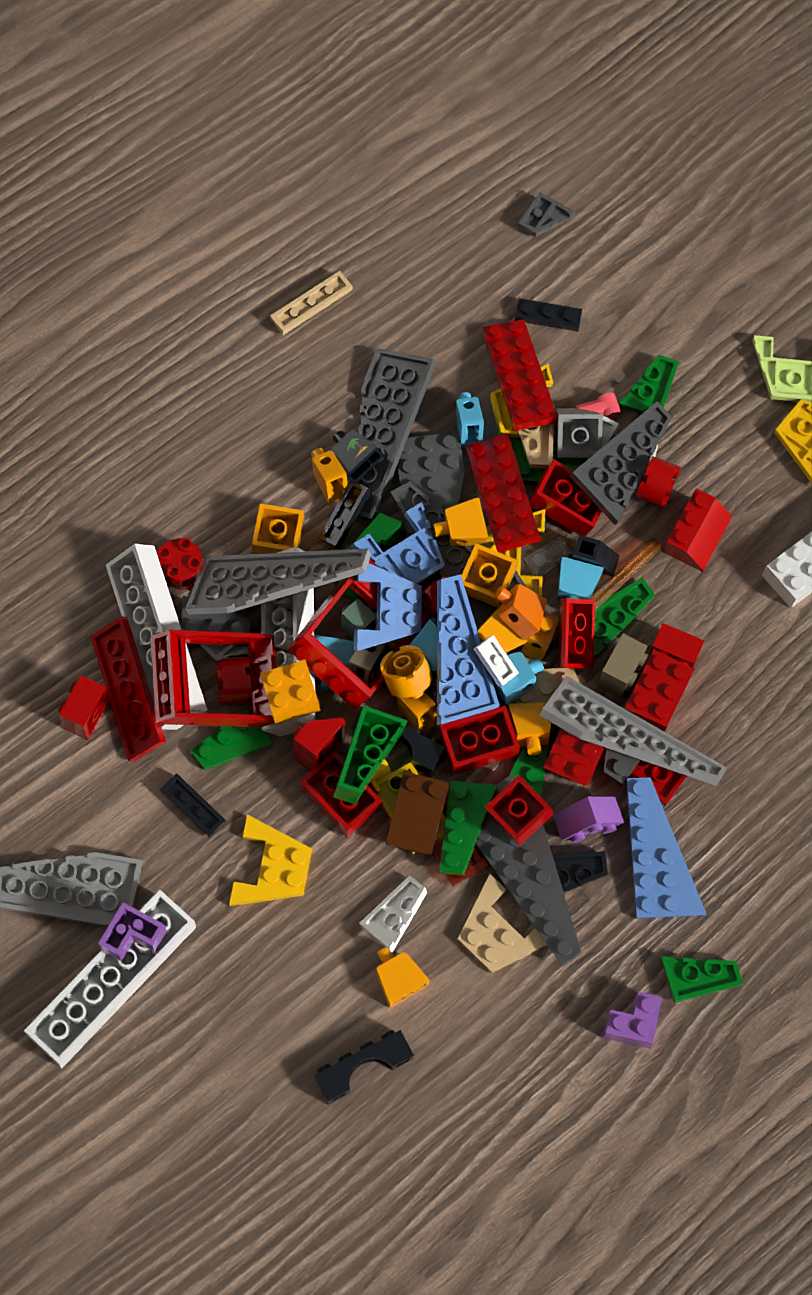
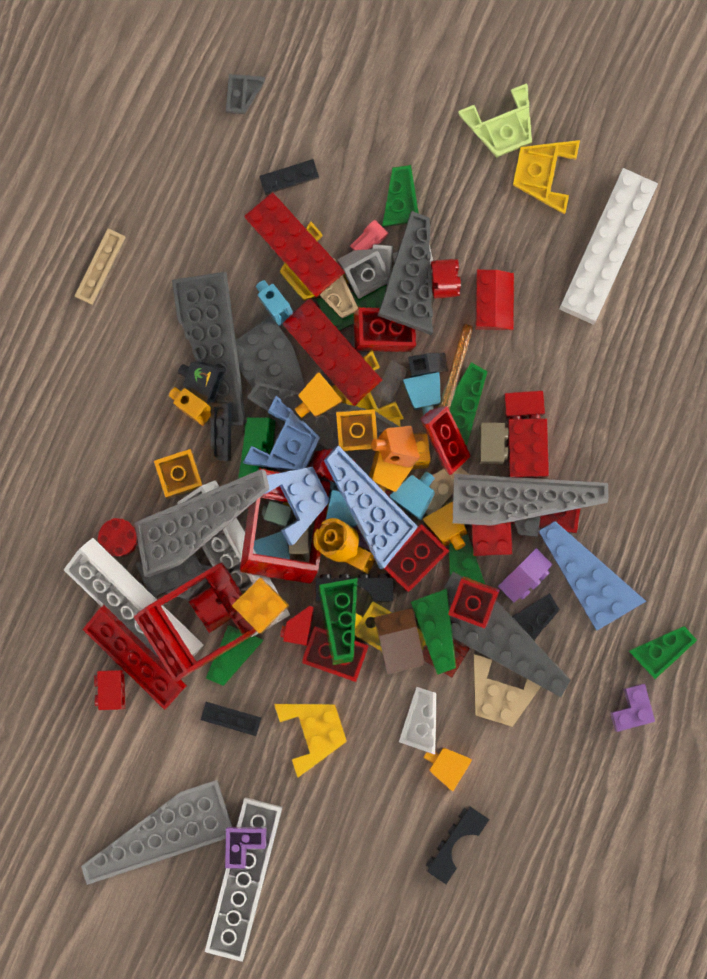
camera: 20 degrees left, 15 degrees up
(496, 661) = (398, 496): white plate -> none

